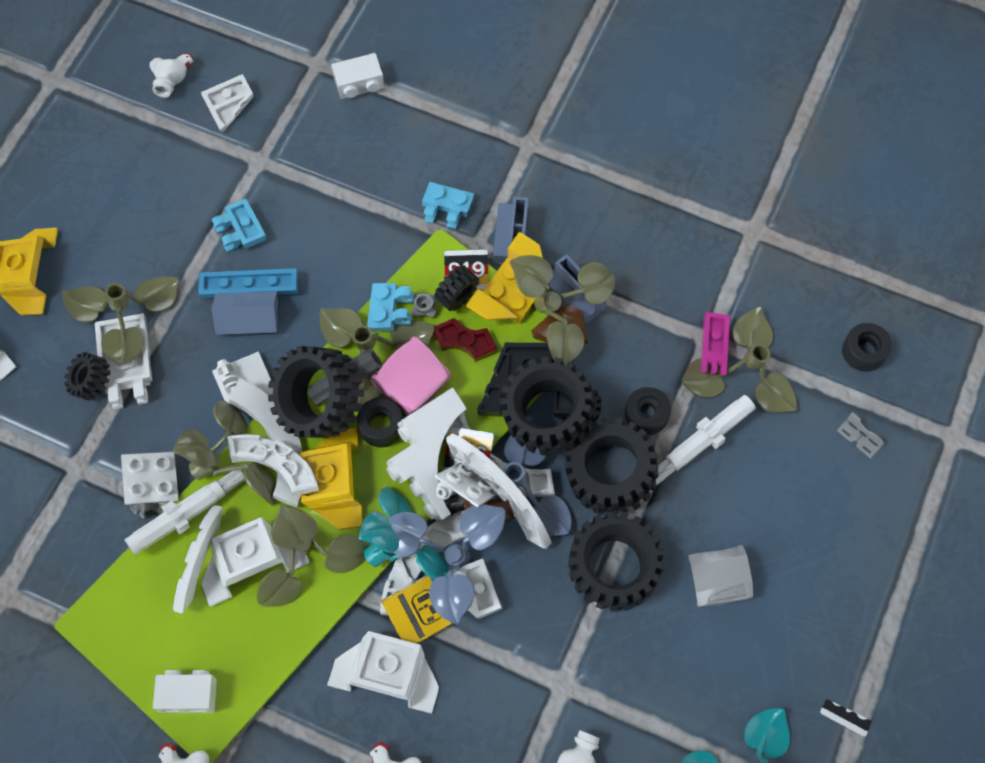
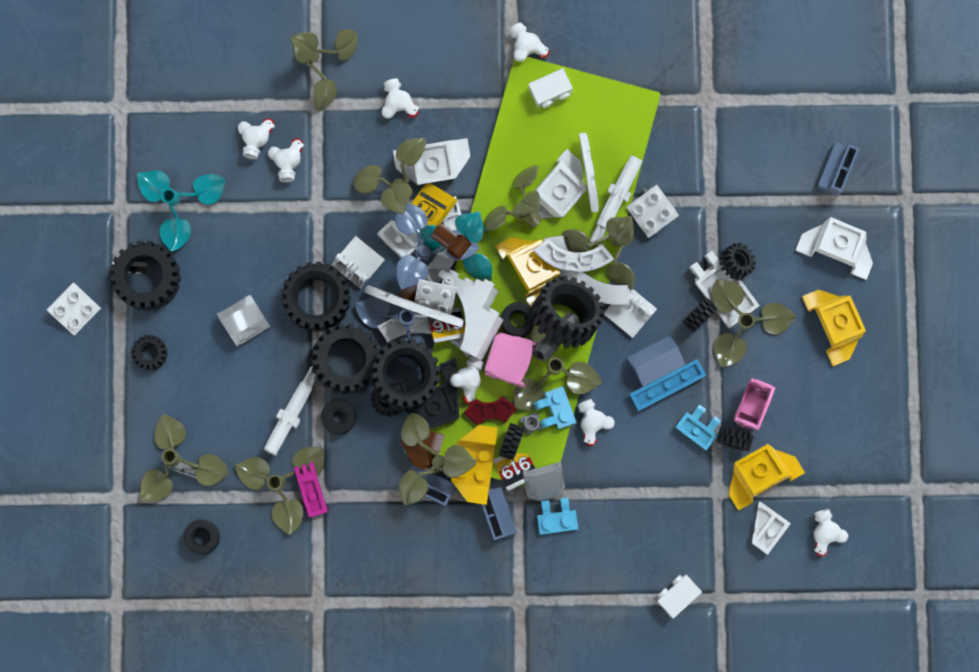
camera: 155 degrees right, 15 degrees up
(165, 213) = (753, 404): none -> bright pink piece
(166, 335) = (700, 315): none -> black tyre
(202, 151) = (760, 472): none -> yellow piece
(207, 192) = (734, 438): none -> black tyre
(353, 281) = (593, 421): none -> white animal
(410, 531) = (454, 244): none -> reddish brown piece
(441, 231) = (544, 482): none -> light grey slope
(452, 623) = (398, 195): none -> olive plant
(474, 379) = (468, 378): none -> white animal
(542, 585) = (357, 262): none -> white hinge
(803, 707) = (162, 292): none -> black tyre
(871, 581) = (149, 341): none -> black tyre
(897, 428) = (168, 433): none -> olive plant
(941, 691) = (73, 308): none -> white hinge

